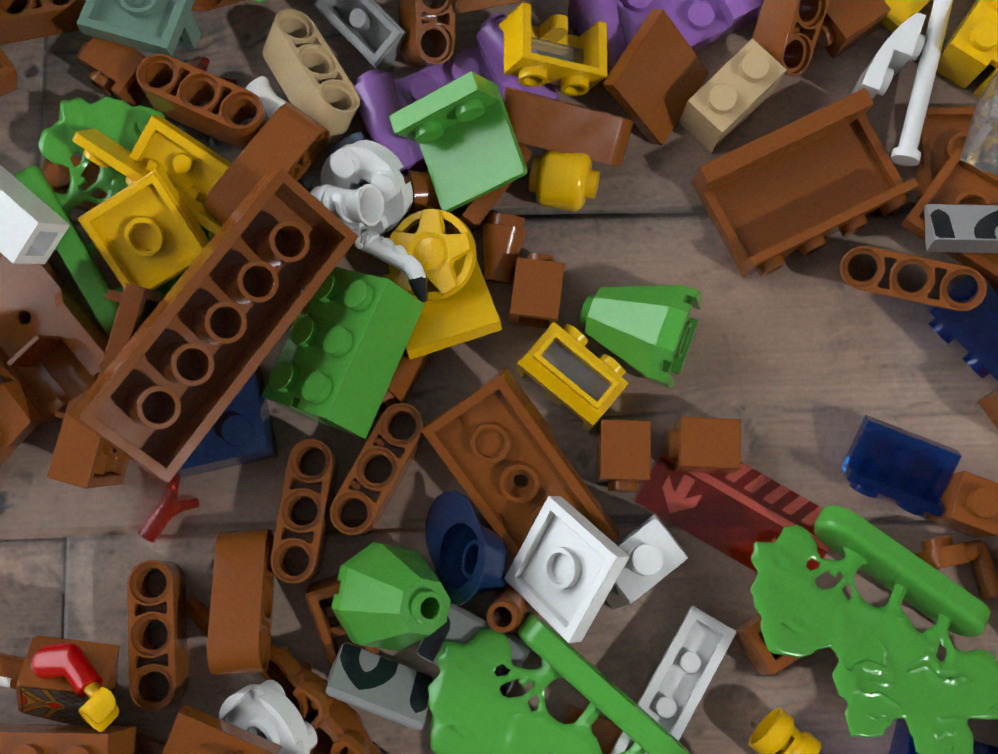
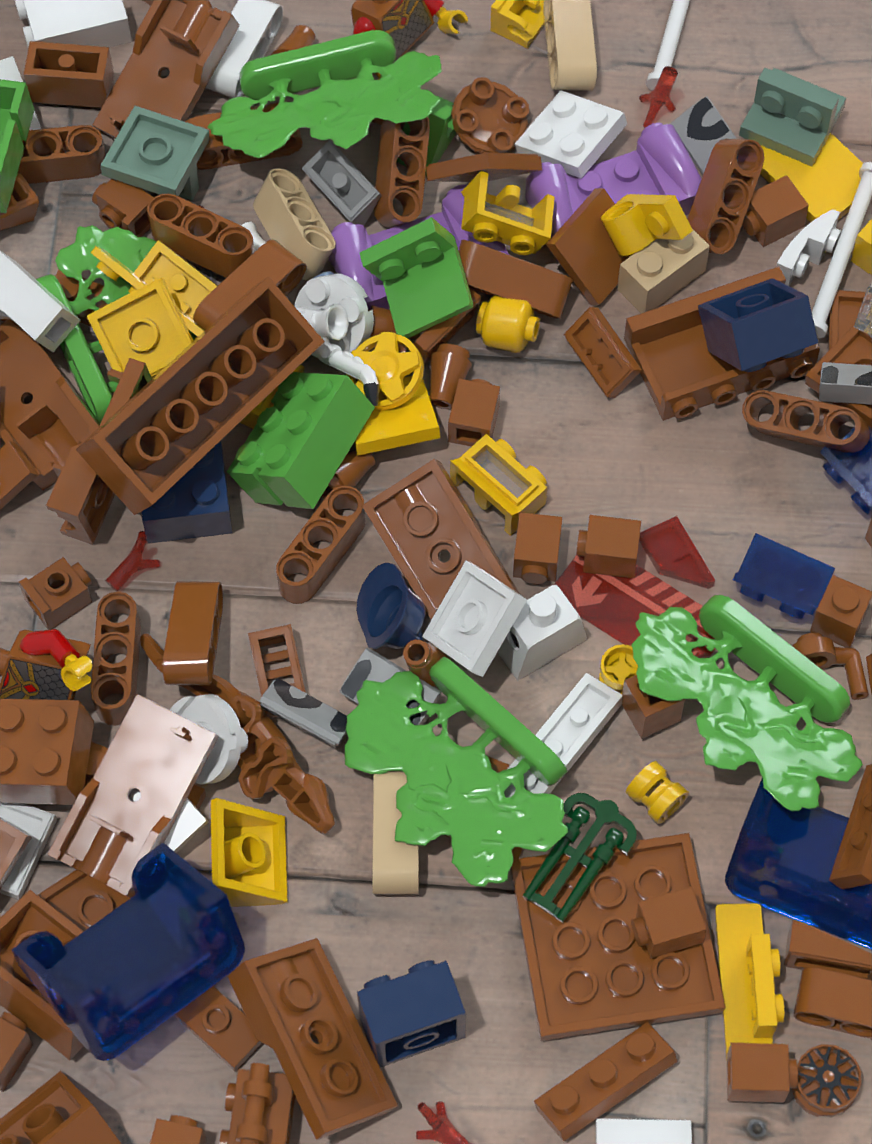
camera: 10 degrees right, 15 degrees down
(102, 555) = (58, 604): none -> dark orange brick
(297, 487) = (253, 553): dark orange beam -> none
(389, 598) = (321, 639): bright green cone -> none
(644, 326) = (568, 445): bright green cone -> none
(672, 204) = (602, 352): none -> dark orange plate
(708, 43) = (642, 219): none -> yellow plate
(737, 600) = (617, 662): none -> yellow wheel
(774, 442) = (675, 553): none -> clear red tile
(854, 166) = (758, 325): none -> dark blue brick

